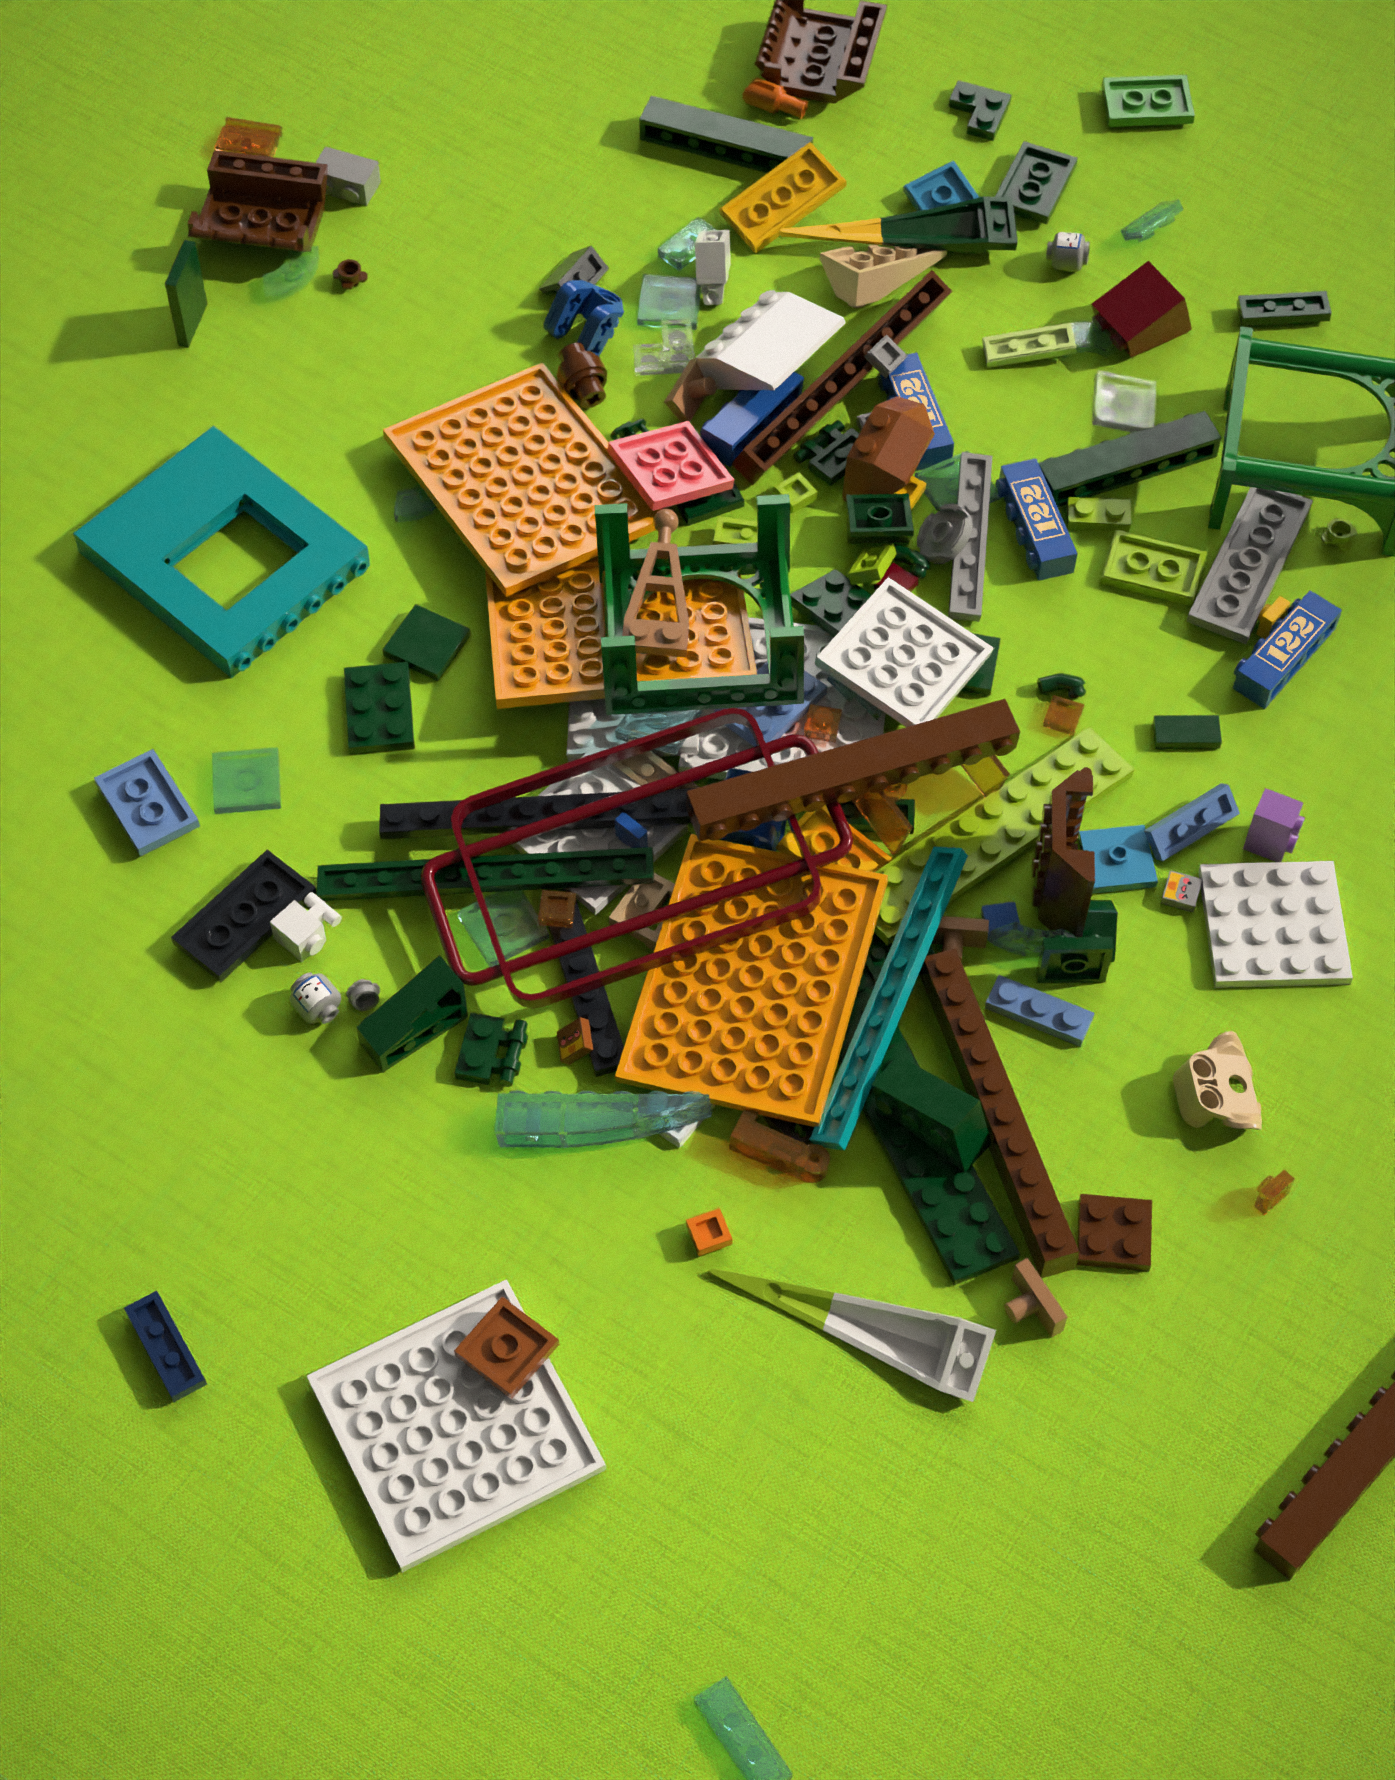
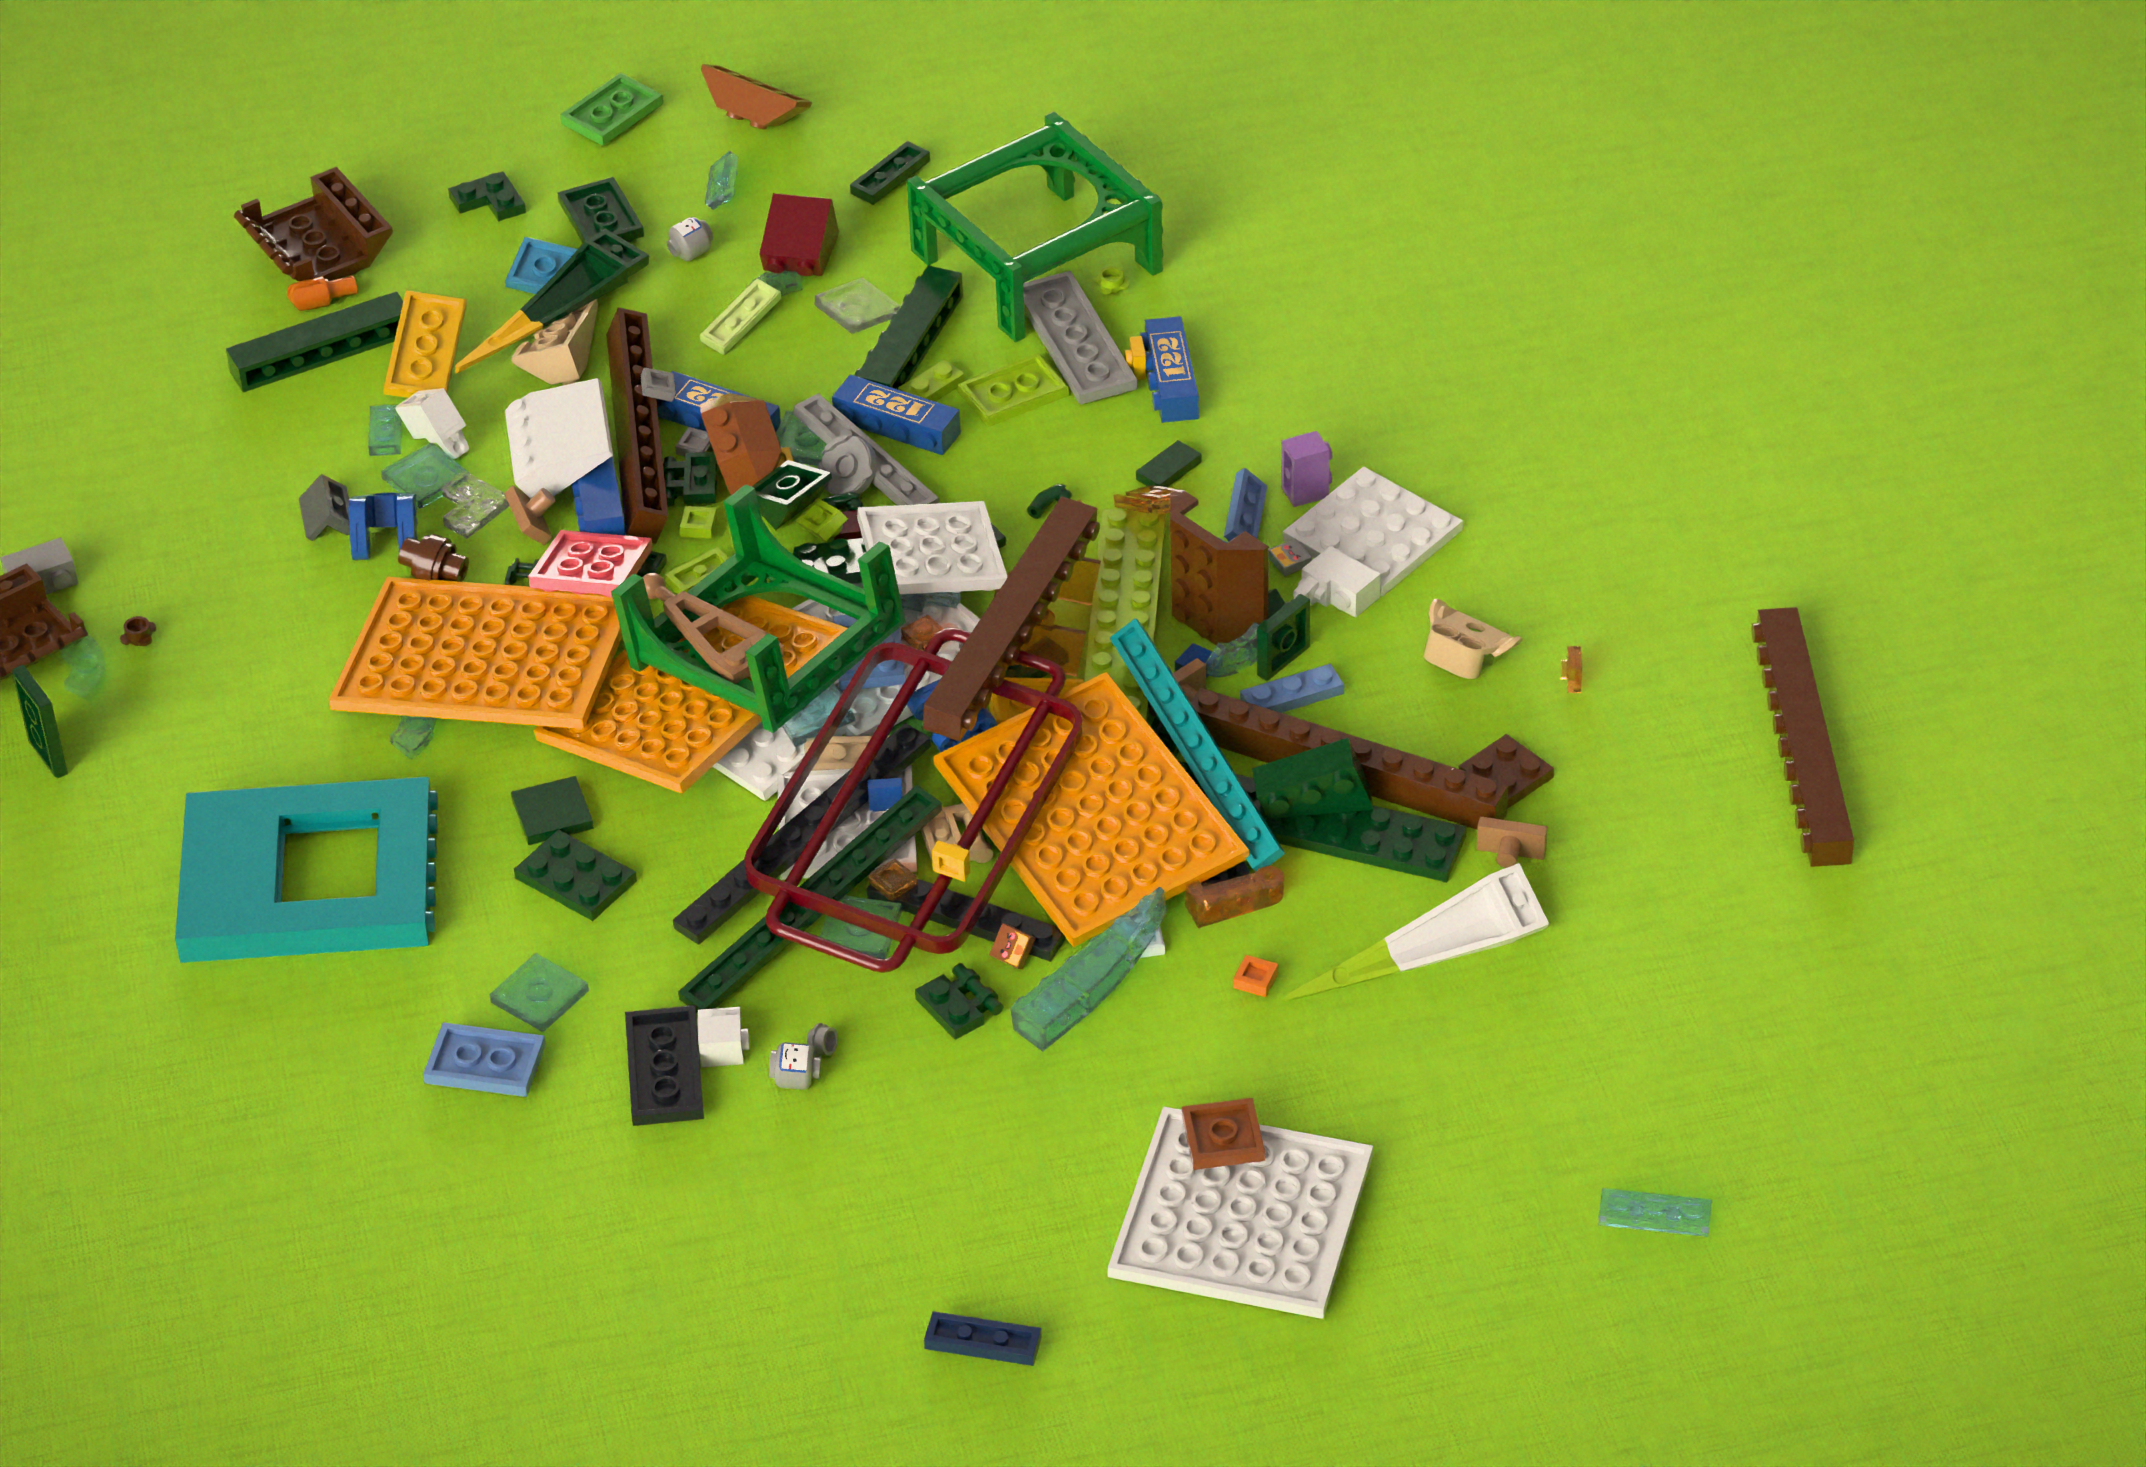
camera: 45 degrees left, 15 degrees down
(414, 1015) = (882, 1014): dark green wedge -> none
(583, 934) = (951, 860): none -> yellow plate
(1128, 750) = (1146, 499): none -> clear orange plate
(1184, 946) = (1340, 582): none -> white hinge
(1253, 165) = (750, 98): none -> dark orange wedge

